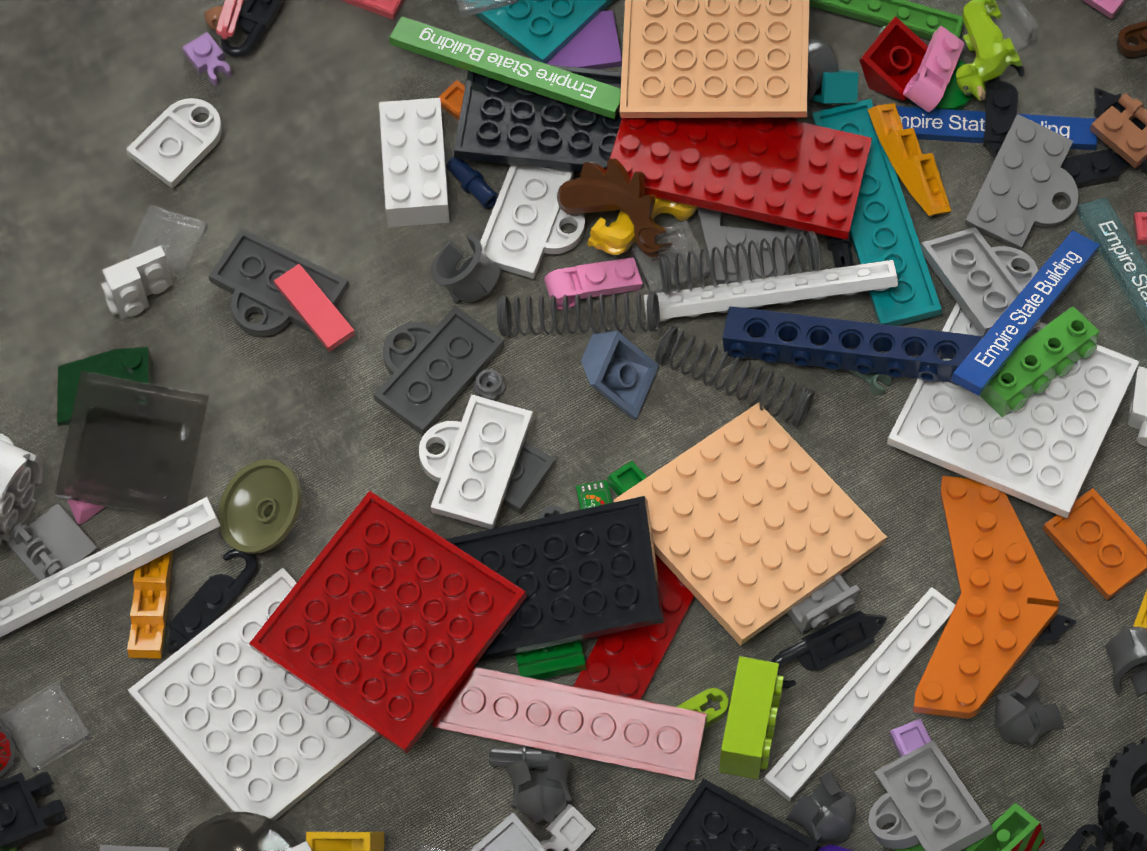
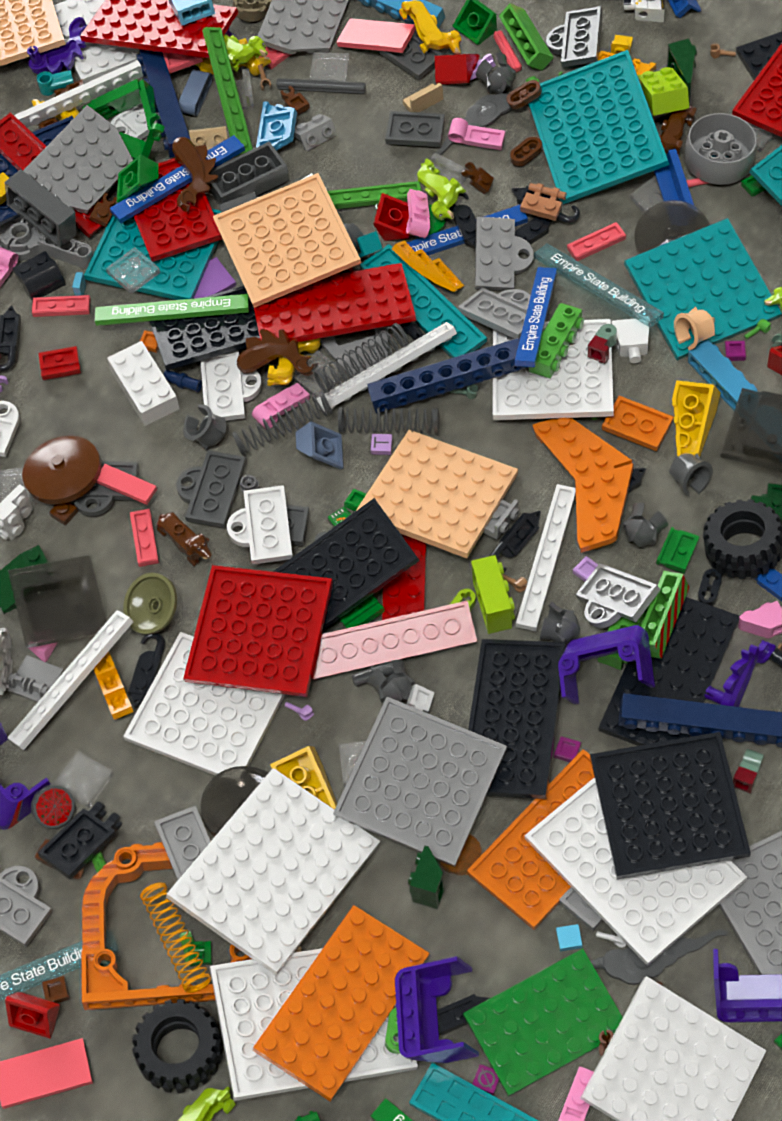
camera: 20 degrees left, 5 degrees down
(211, 308) = (63, 512): none -> reddish brown plate
(236, 245) = (62, 469): none -> reddish brown dish
(304, 399) = (144, 537): none -> coral tile
(314, 78) = (59, 363): none -> red plate
(358, 436) = (184, 538): none -> reddish brown animal
(399, 772) = (305, 713): none -> lavender hand
(708, 407) = (381, 444): none -> lavender tile
(801, 718) = (519, 585): none -> medium nougat hand
(1055, 51) = (480, 178): none -> reddish brown plate
(1060, 772) = (678, 550): none -> green plate
(1105, 395) = (601, 342): none -> leg

